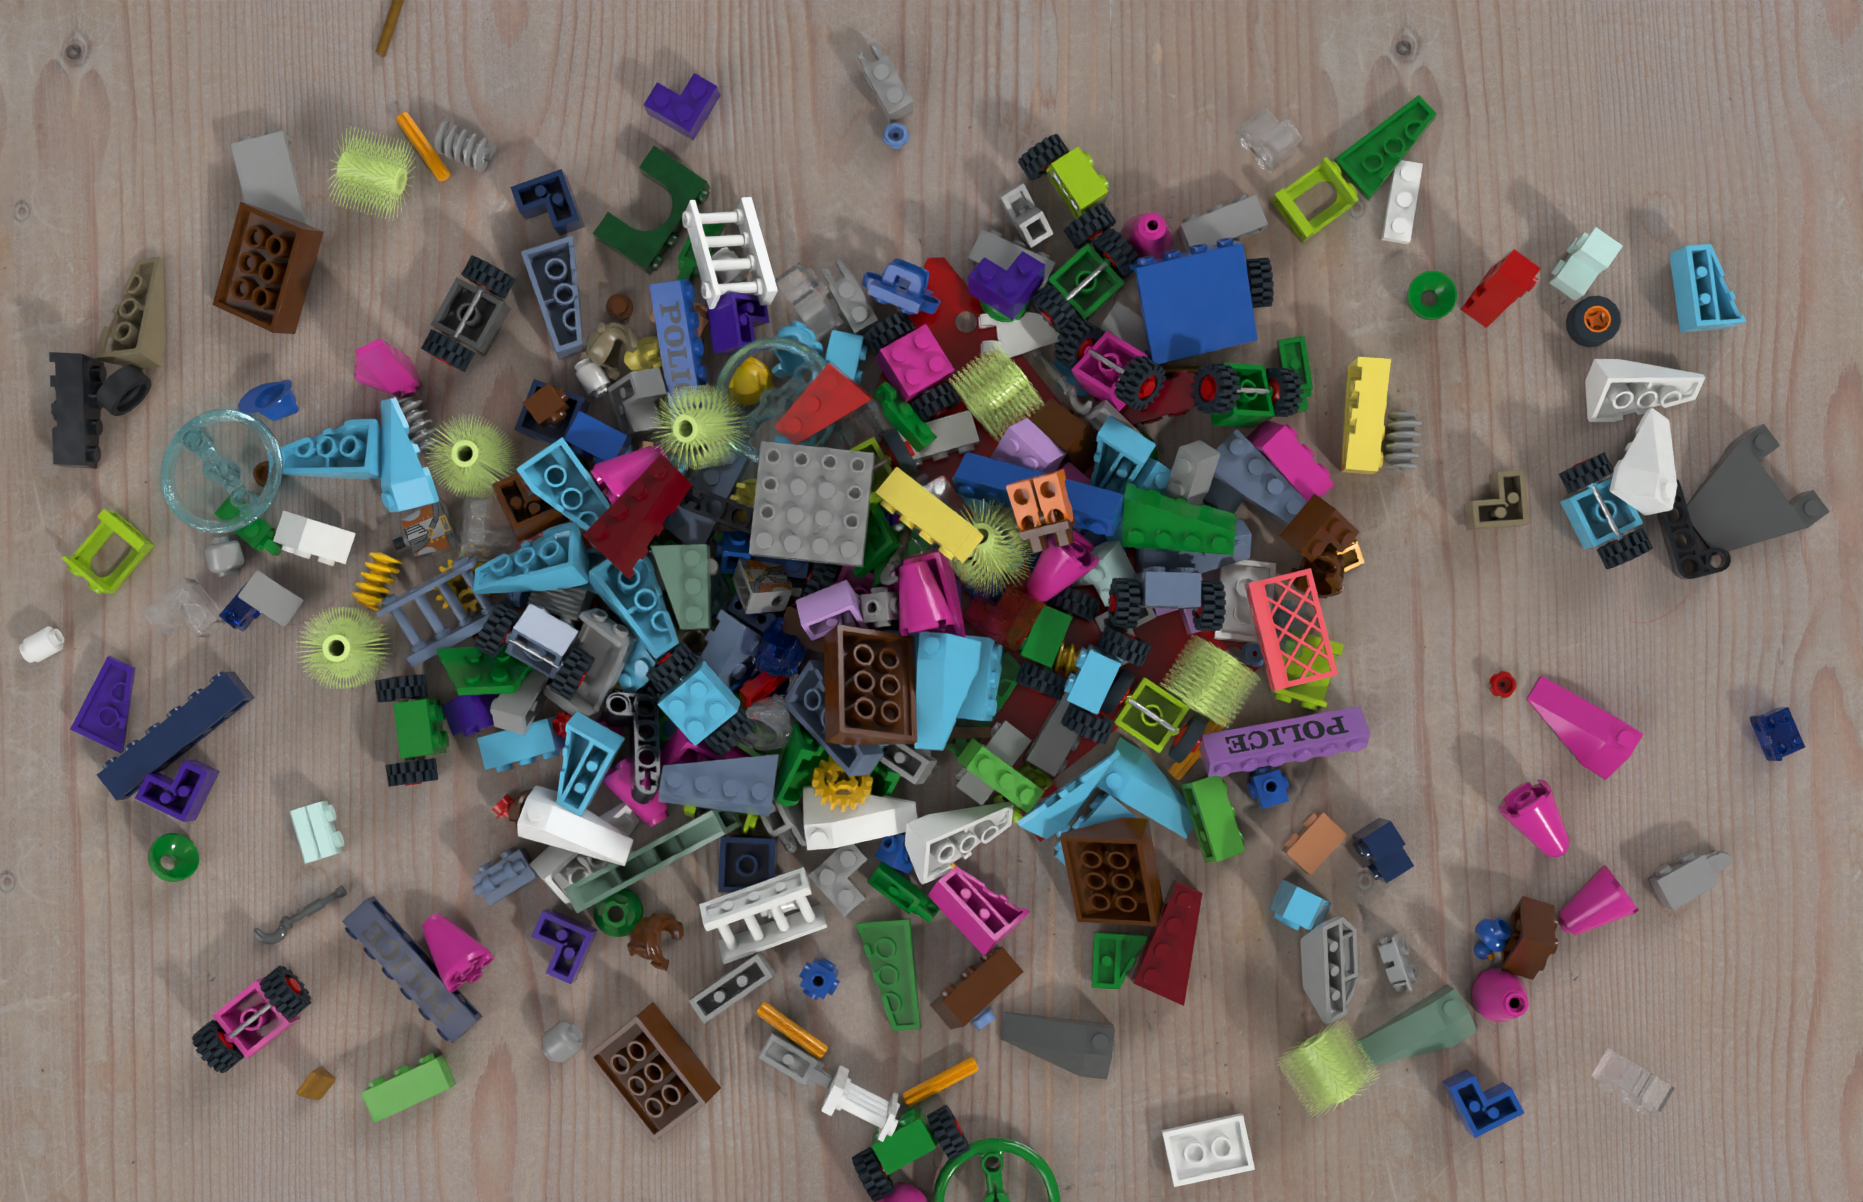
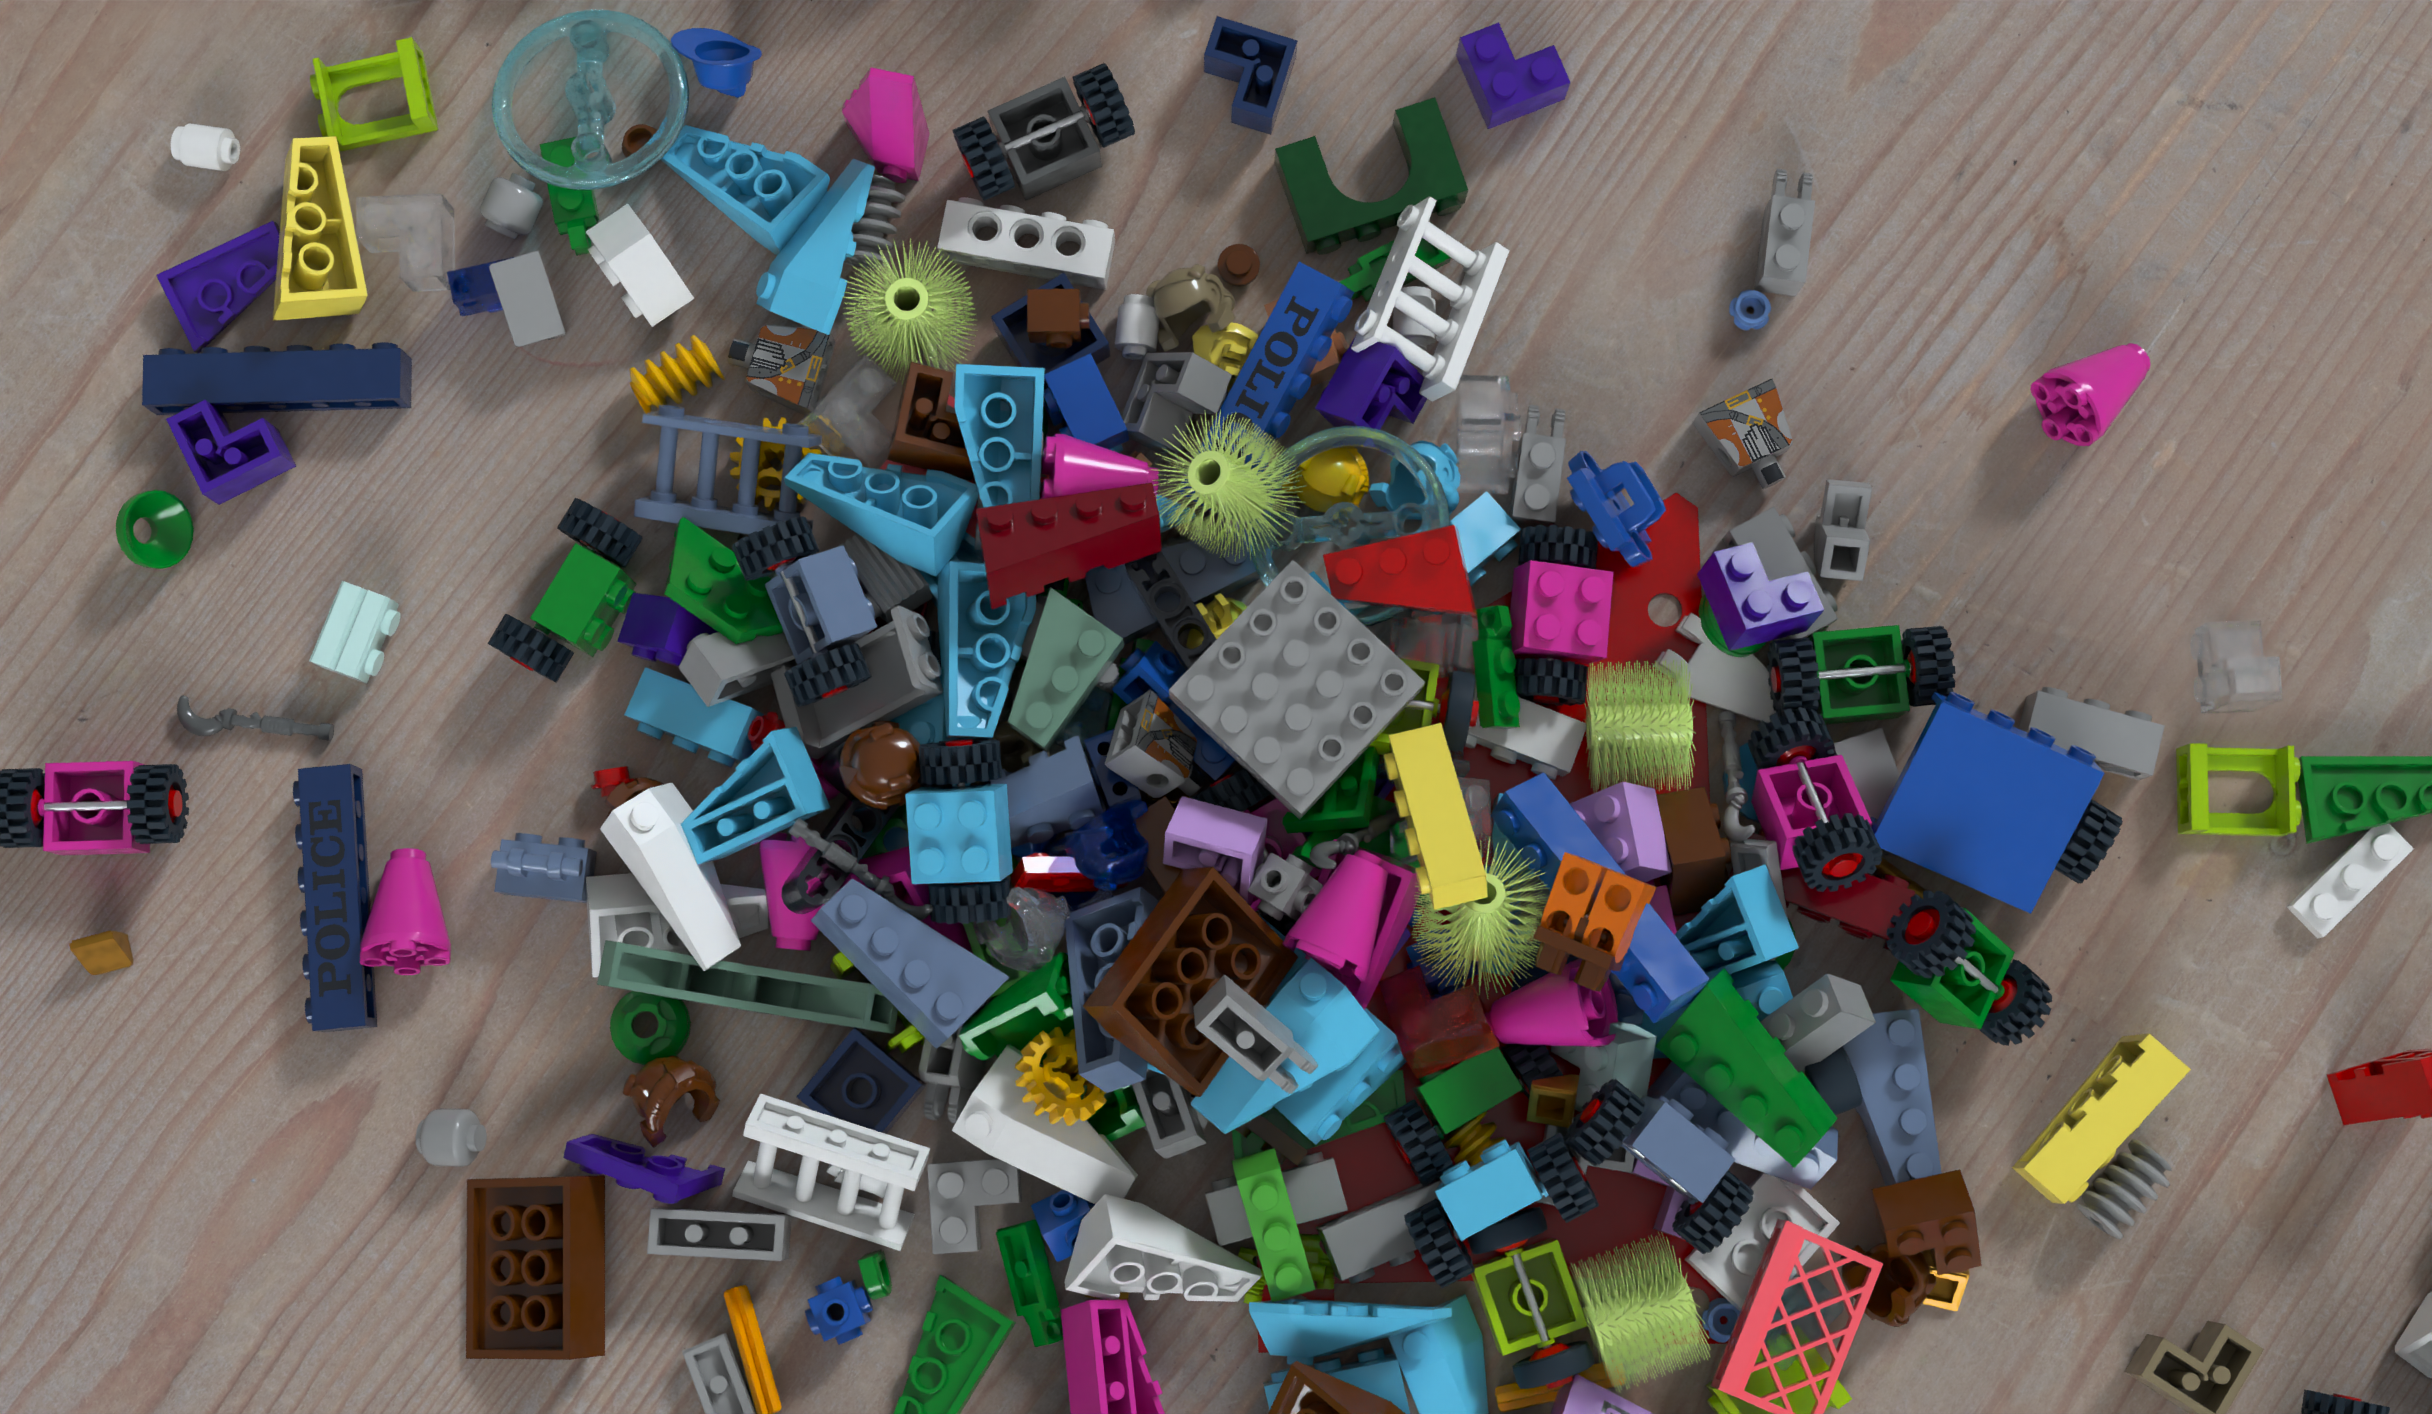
camera: 30 degrees right, 5 degrees down
(139, 650) = (318, 244): none -> light yellow wedge
(344, 647) = (569, 428): yellowish green piece -> none
(408, 1086) = (214, 1044): bright green brick -> none
(518, 379) = (1085, 268): none -> white brick
(518, 599) = (832, 531): medium blue plate -> none
(555, 284) = (1178, 181): sand blue wedge -> none
(571, 943) = (562, 1017): dark purple brick -> none
(633, 698) = (880, 764): none -> reddish brown helmet
(655, 759) = (849, 863): none -> dark grey piece
(683, 980) = (630, 1167): none -> dark purple wing
(824, 947) = (875, 1274): none -> green tile
(918, 693) = (1250, 1034): none -> light grey hinge
(941, 200) = (1748, 433): none -> torso
(1077, 185) = (1938, 542): brick -> none
(1091, 610) = (1553, 1100): none -> pearl gold slope
(1096, 51) = (2089, 393): none -> dark pink cone
(1148, 235) = (1986, 672): dark pink cone -> none
(1291, 458) = (1961, 1101): dark pink wedge -> none
(1294, 356) = (2062, 969): green hinge -> none
(1440, 286) = (2322, 1023): green piece -> none

